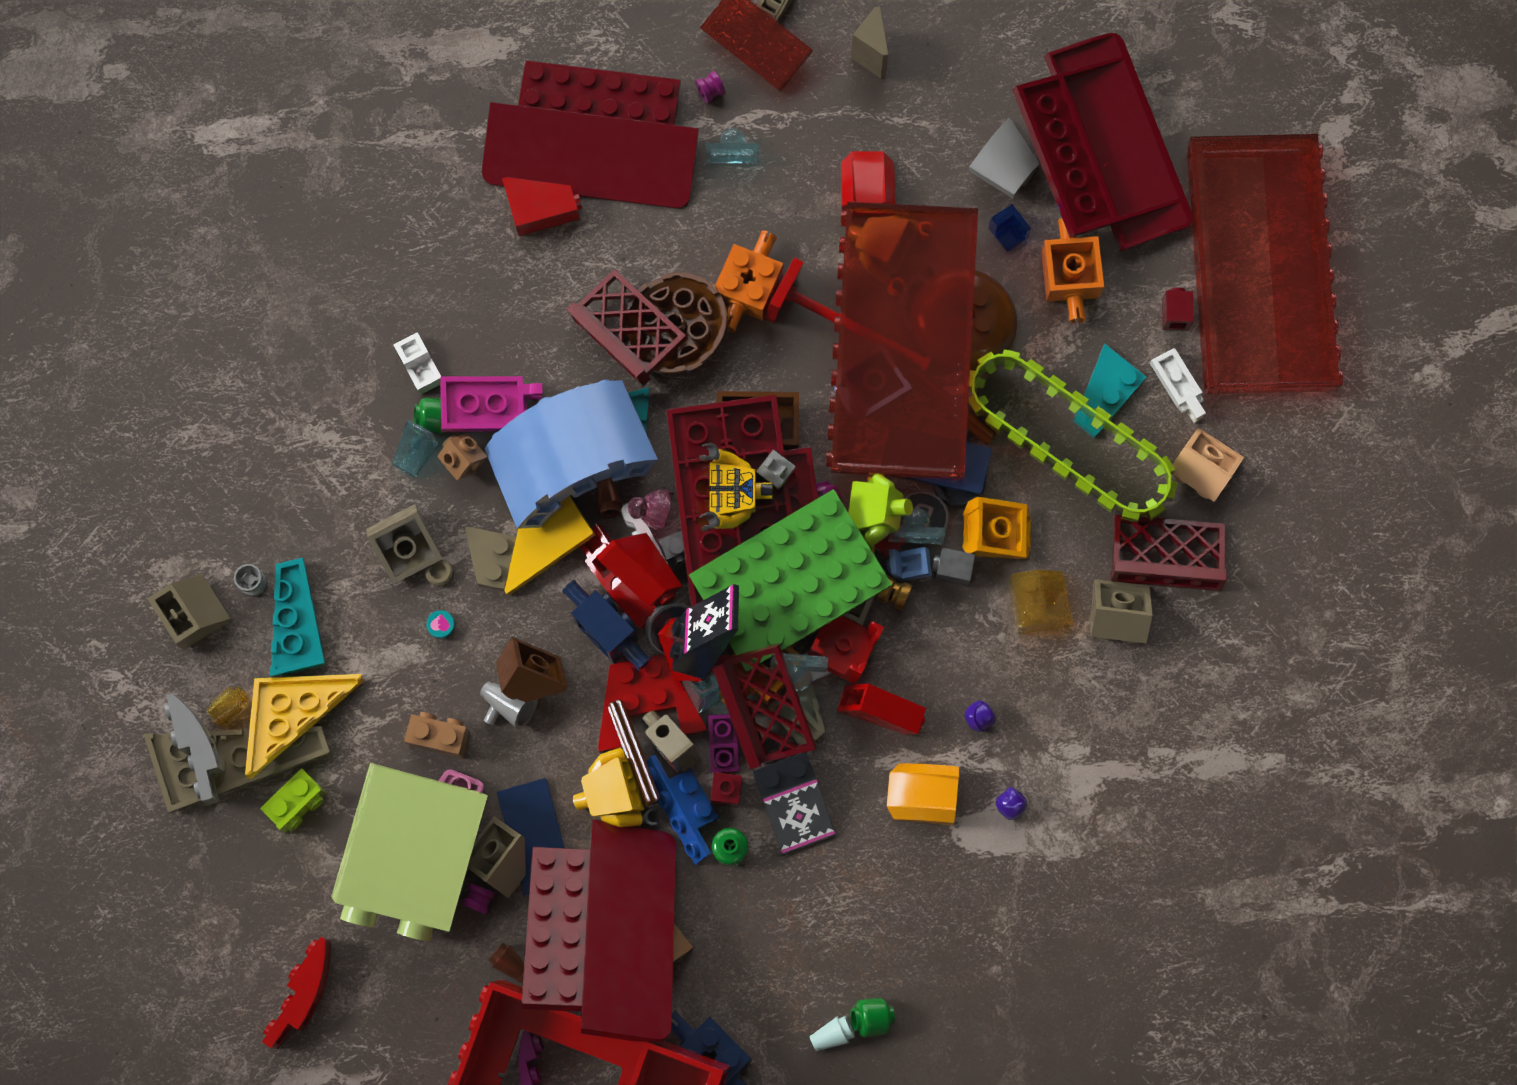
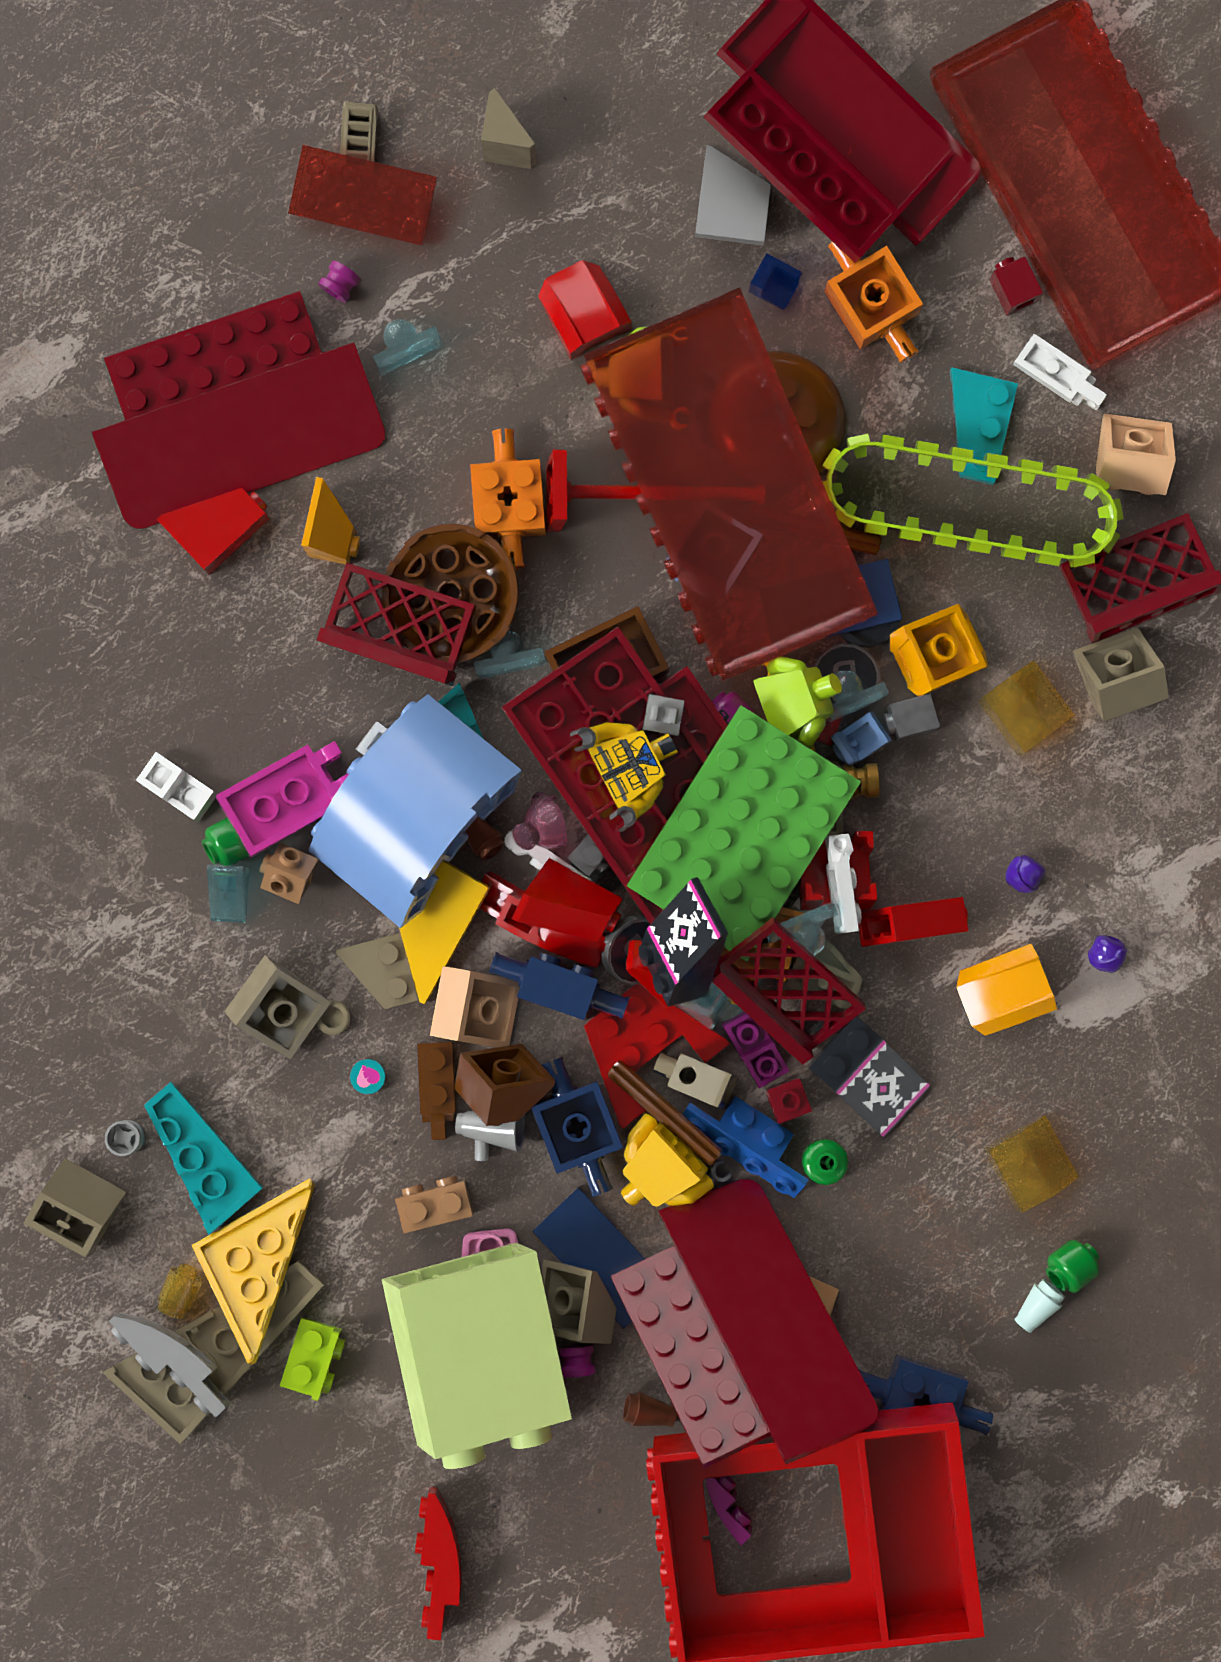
camera: 30 degrees left, 10 degrees up
(484, 655) = (436, 1086): none -> reddish brown hinge
(540, 613) = (475, 1008): none -> light nougat slope
(554, 717) = (598, 1136): none -> dark blue brick
(612, 239) = (328, 529): none -> light orange slope
(691, 387) = (509, 657): none -> clear light blue tile
(842, 651) = (841, 883): none -> white hinge
(880, 926) = (1031, 1164): none -> clear yellow slope

